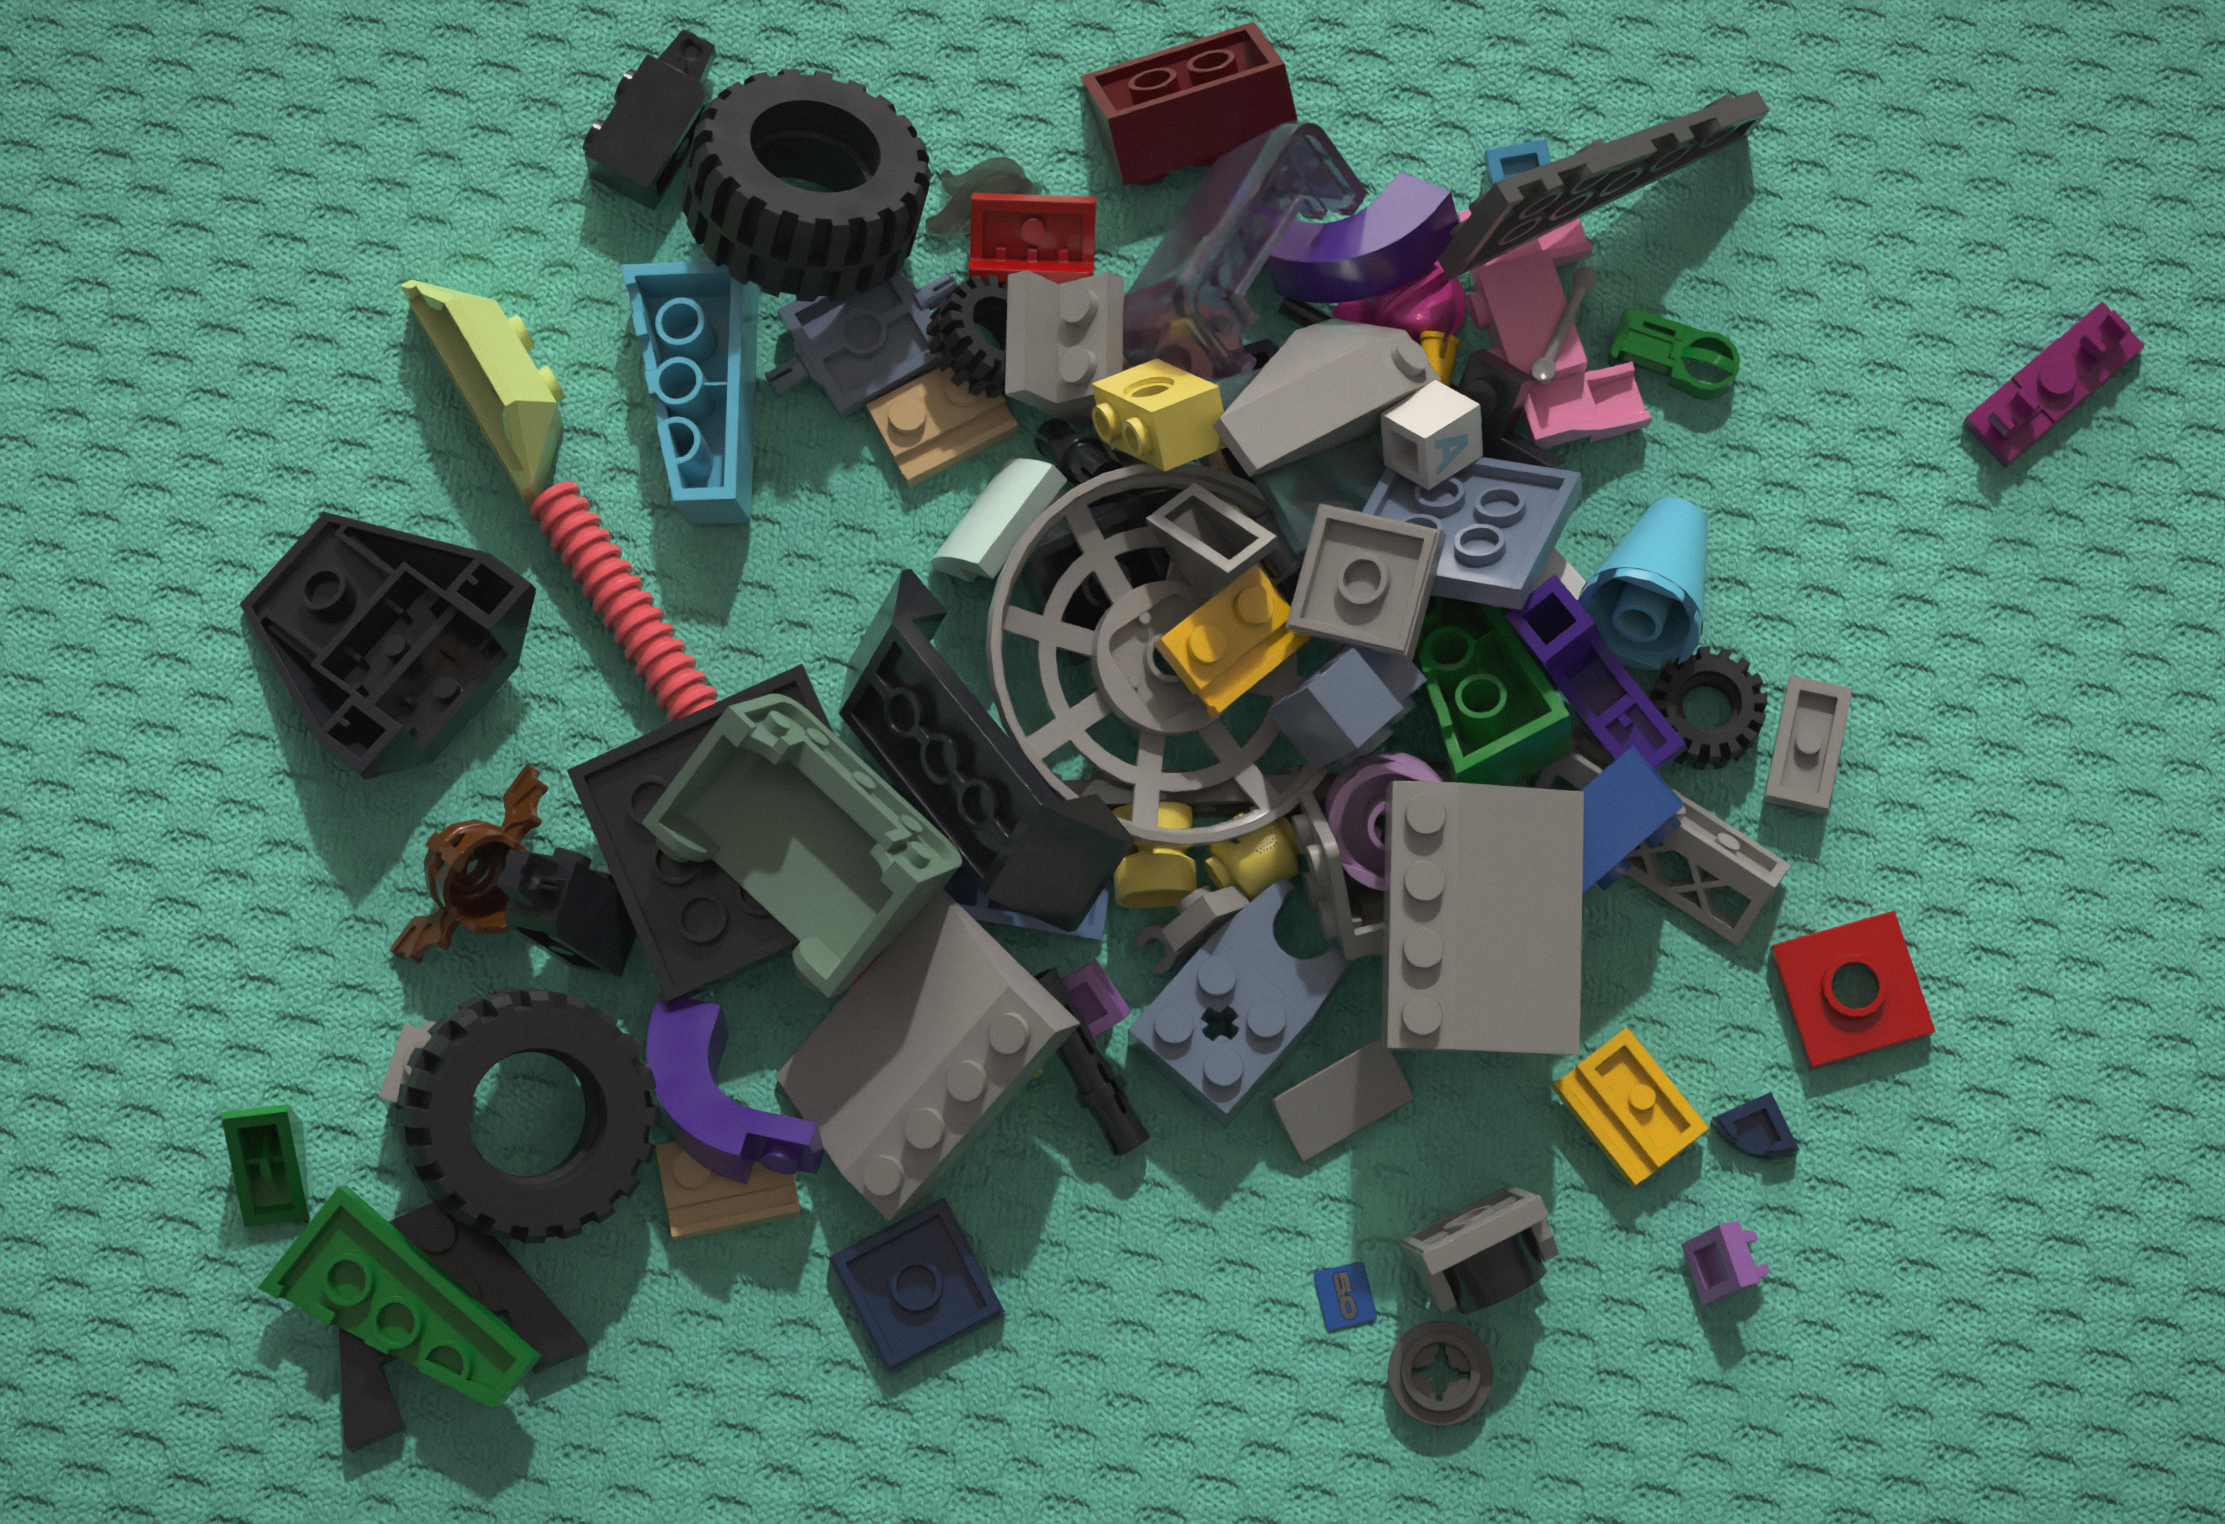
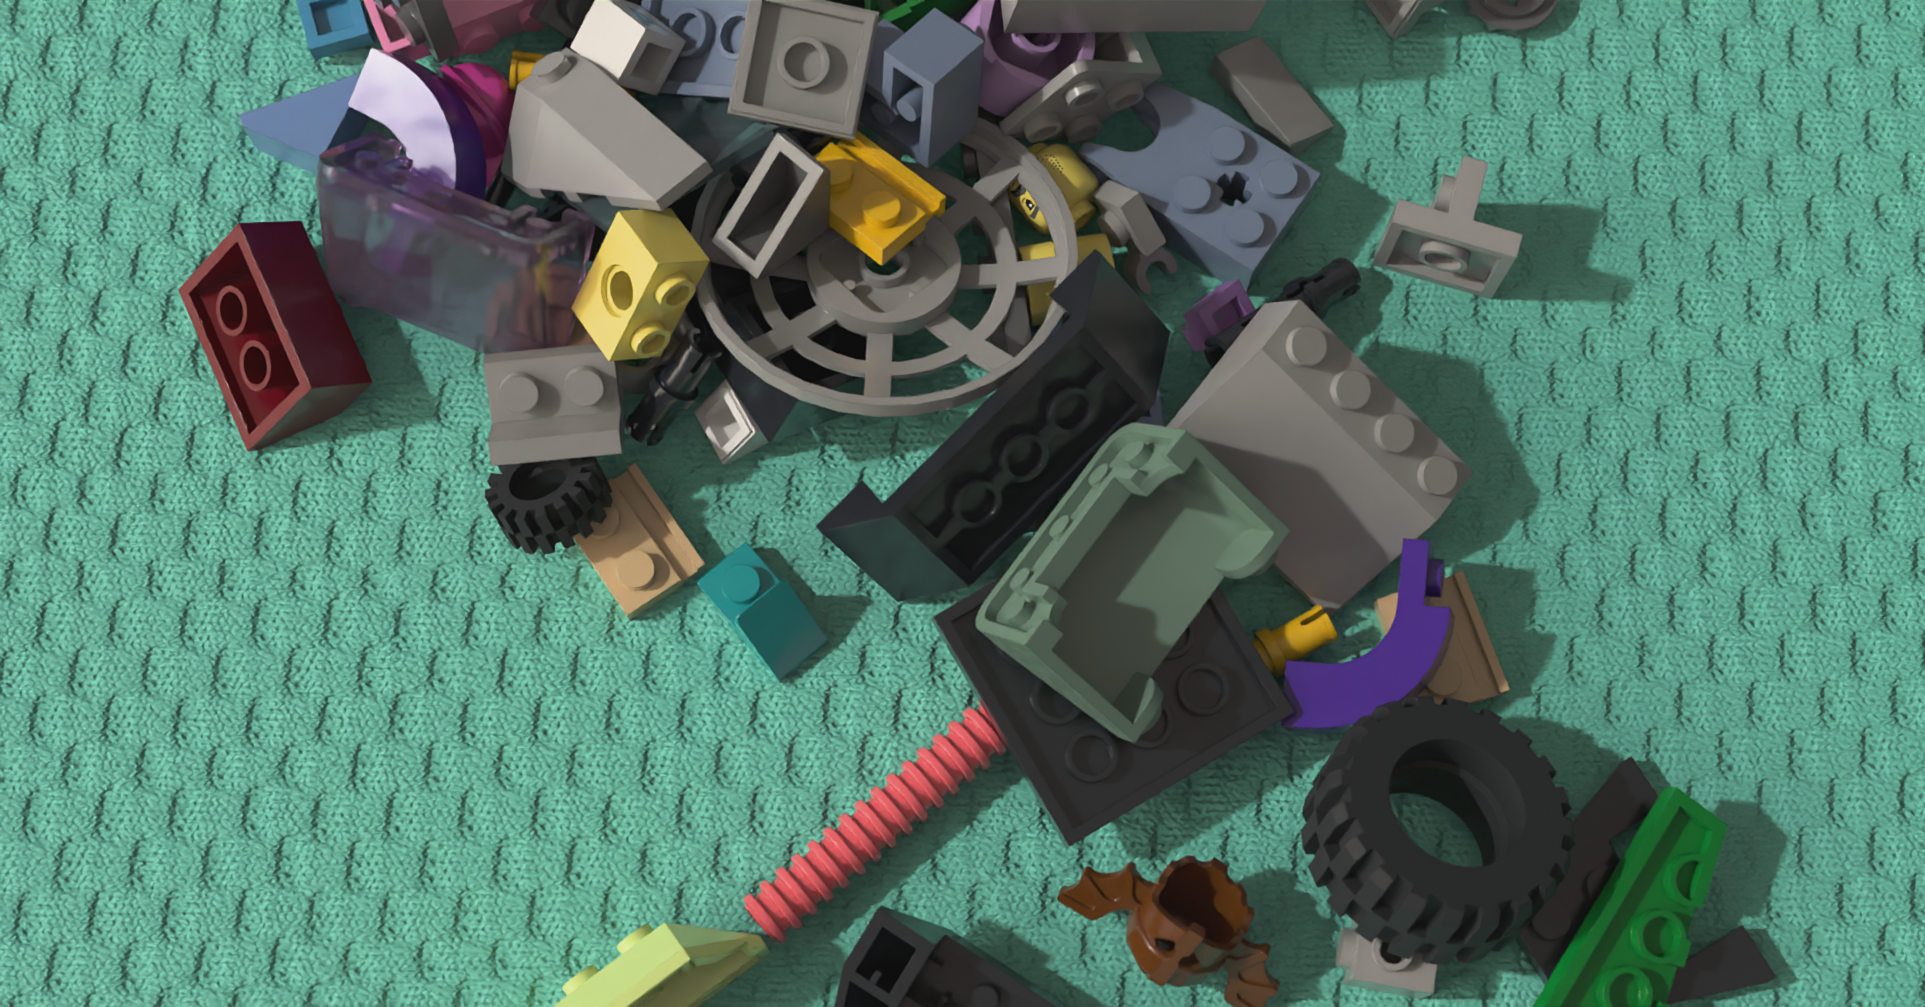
camera: 100 degrees left, 0 degrees up
(567, 909) = (1213, 821): black hinge -> none
(652, 122) = (330, 873): black hinge -> none
(701, 374) = (608, 781): medium azure wedge -> none
(749, 1025) = (1294, 639): none -> yellow pin
(796, 236) = (454, 722): black tyre -> none
(853, 531) = (763, 611): none -> teal slope
(861, 343) = (551, 627): sand blue plate -> none
(917, 1286) = (1519, 456): dark blue tile -> none
(991, 176) = (382, 534): clear smoke piece -> none
(999, 519) = (746, 457): light aqua slope -> none
(1033, 234) = (438, 468): red bracket -> none
(1140, 1238) = (1445, 242): none -> light grey bracket
(1345, 1295) = (1448, 80): blue sticker -> none
(1398, 141) = (306, 123): none -> medium blue slope

